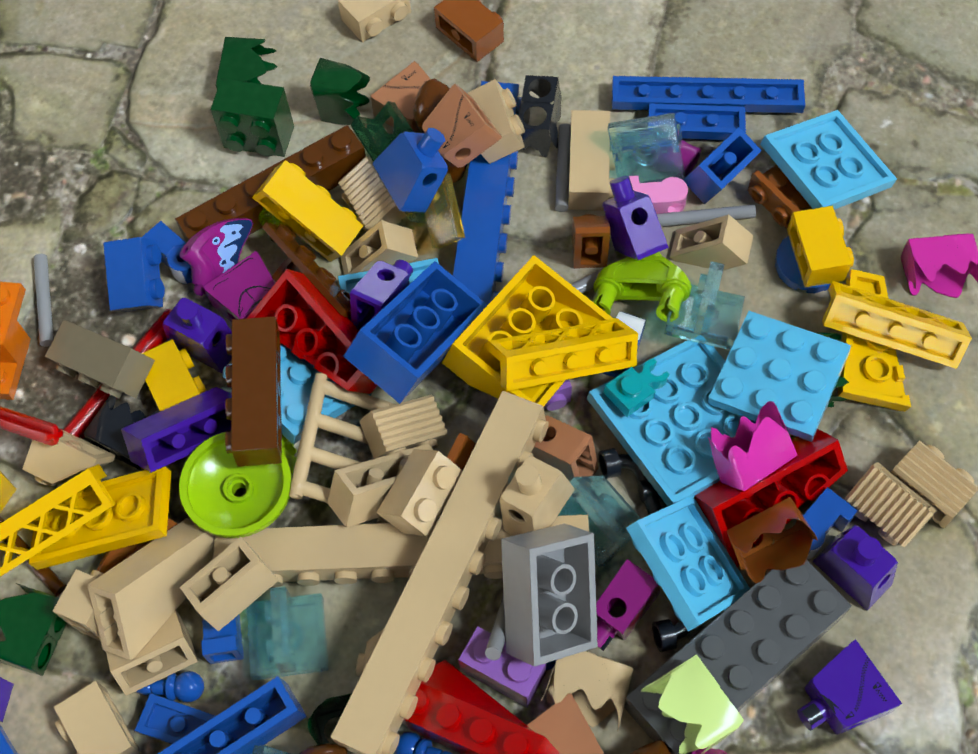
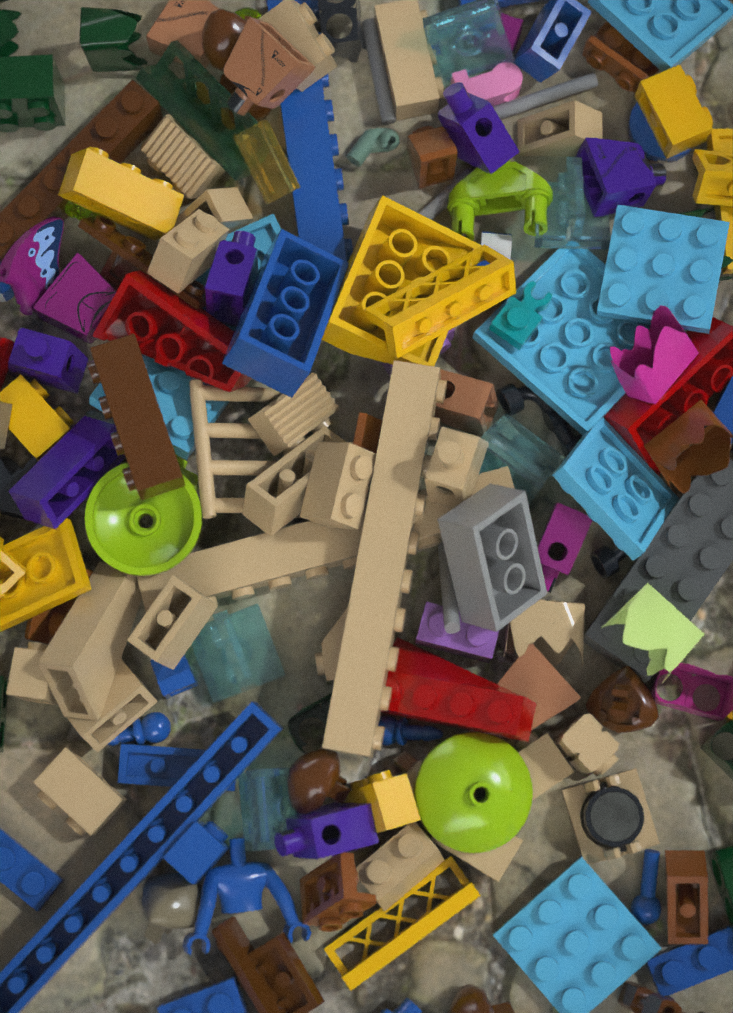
camera: 20 degrees left, 15 degrees up
(345, 262) = (187, 250): none -> tan brick
(413, 169) = (227, 125): blue torso -> none
(542, 220) = (373, 141): none -> sand green arm
(755, 286) = (617, 175): none -> dark purple torso

